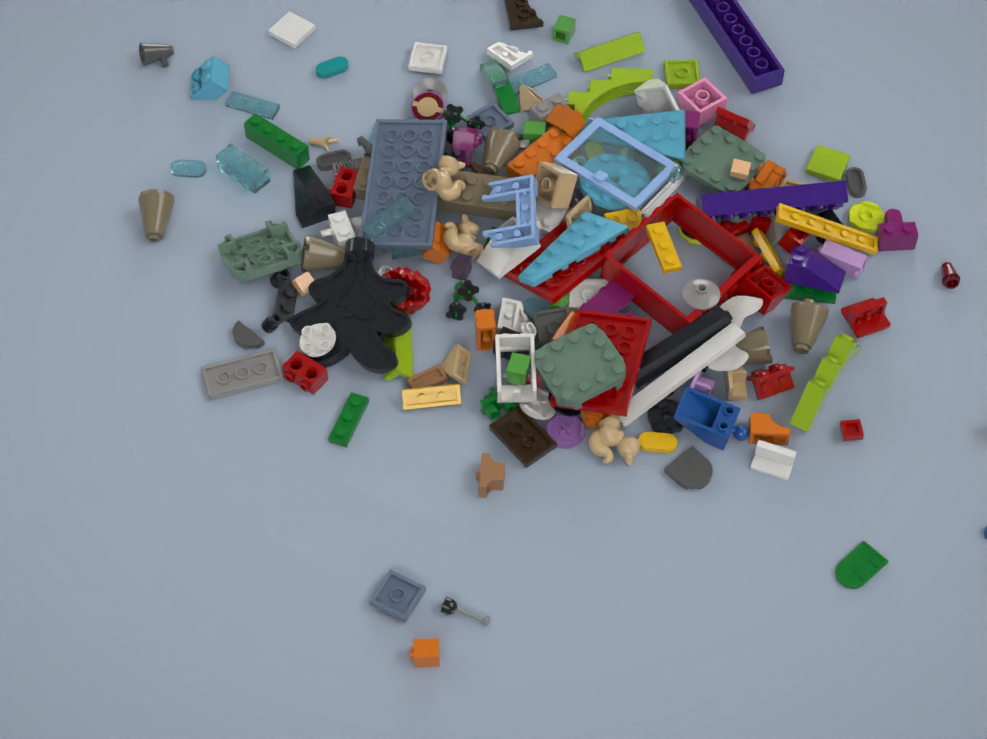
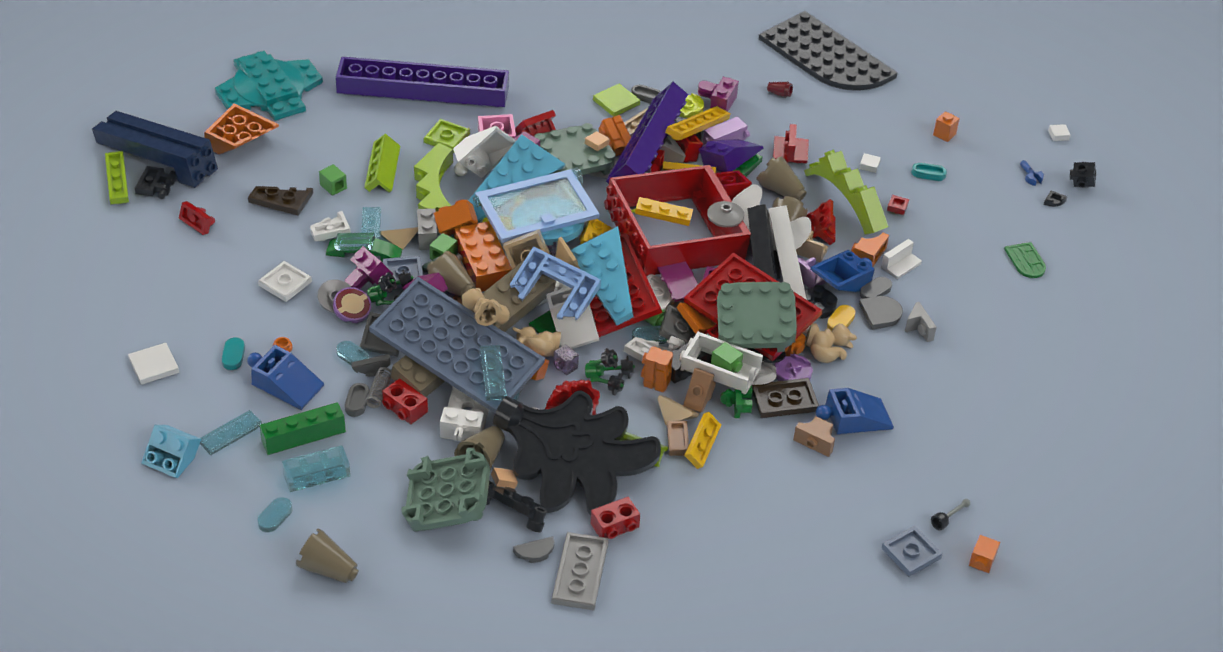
camera: 65 degrees left, 10 degrees down
(154, 52) = (86, 484): dark grey piece -> none
(312, 198) = (400, 431): black wedge -> none
(317, 339) = (589, 489): white dish -> none
(322, 106) = (284, 376): none -> blue slope
(323, 141) = (327, 398): tan bar -> none
(348, 419) = (688, 511): green plate -> none
(358, 90) = (284, 343): none -> orange plate
(472, 97) = (368, 269): none -> magenta brick
(483, 370) = (699, 390): none -> medium nougat brick
(540, 499) = (854, 412): none -> blue slope
(695, 502) = (921, 321): none -> light grey slope
(719, 455) = (878, 287): none -> tile
(900, 387) = (870, 163): none -> white tile
(927, 440) = (929, 171): none -> teal tile
(973, 561) = (1055, 199): none -> black tile

